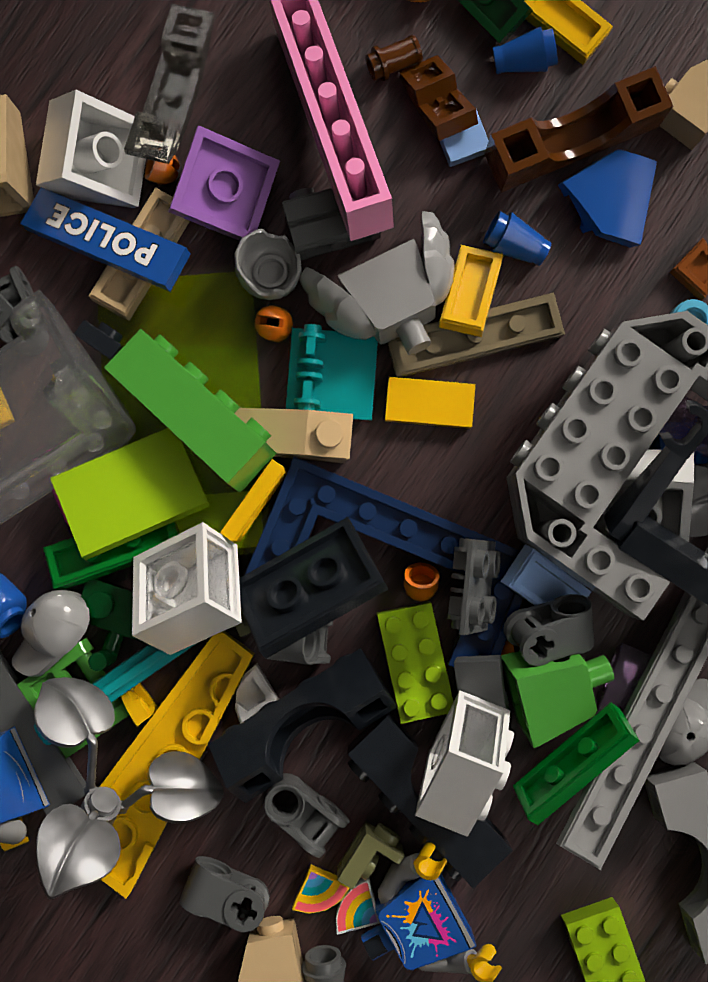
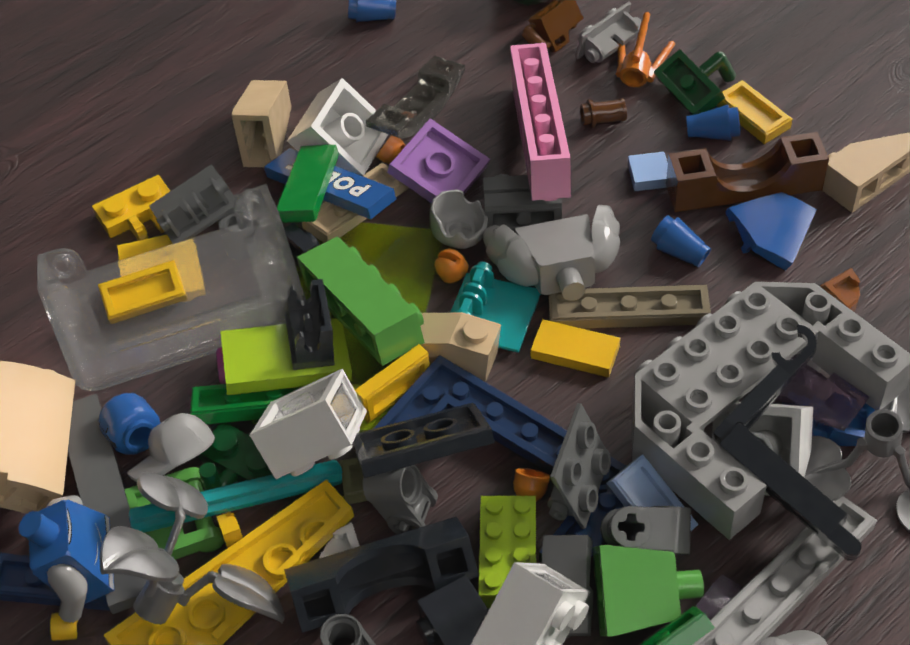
camera: 15 degrees right, 35 degrees down
(82, 256) = (307, 183): none -> green tile
(148, 464) = (309, 328): none -> black hinge
(437, 99) = (634, 140): reddish brown slope -> none
(471, 291) = (631, 270): yellow tile -> none

